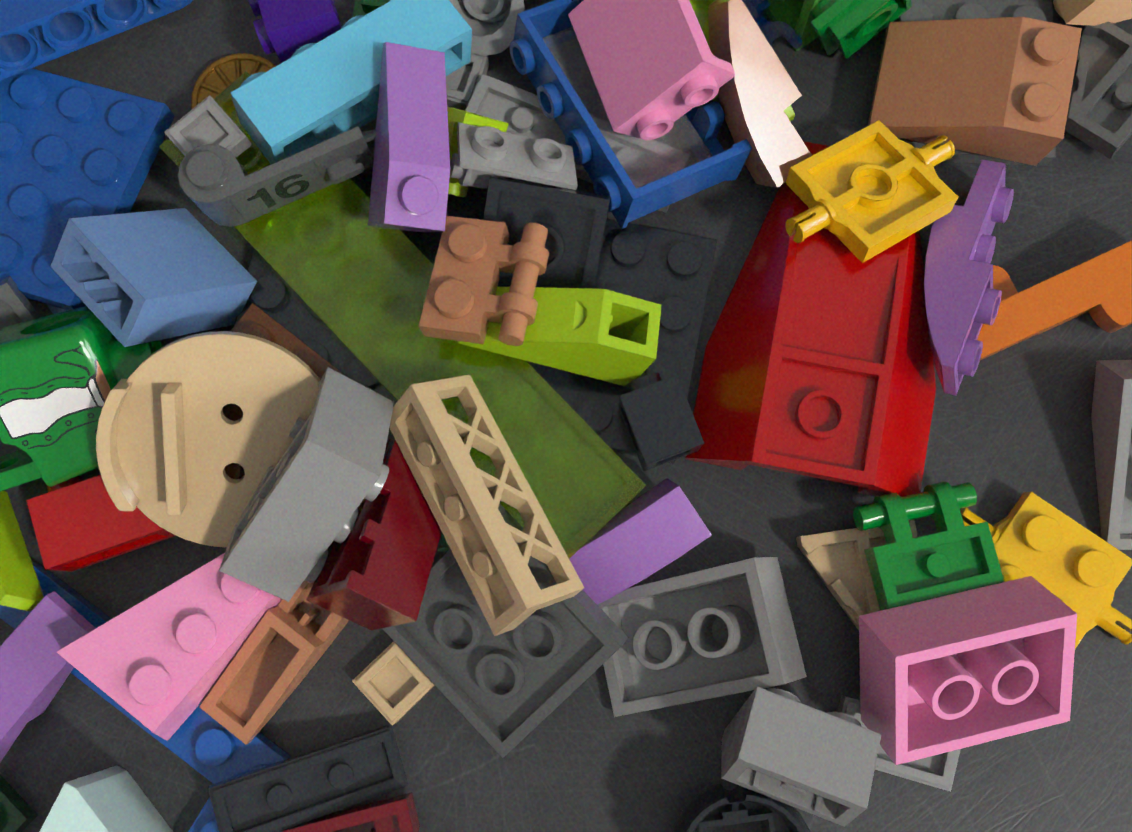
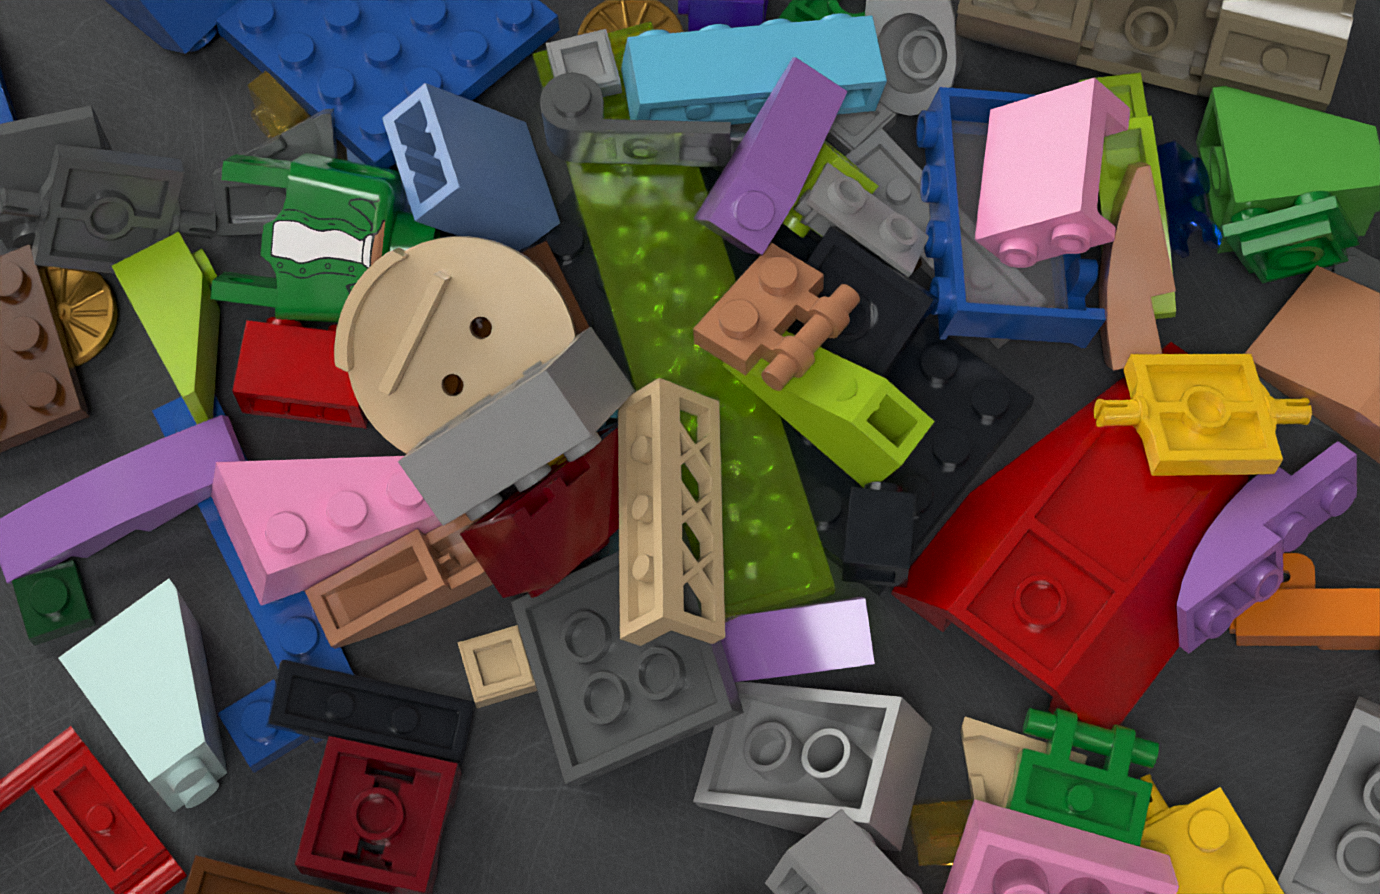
camera: 25 degrees right, 10 degrees down
(830, 640) = (938, 830): none -> clear yellow plate

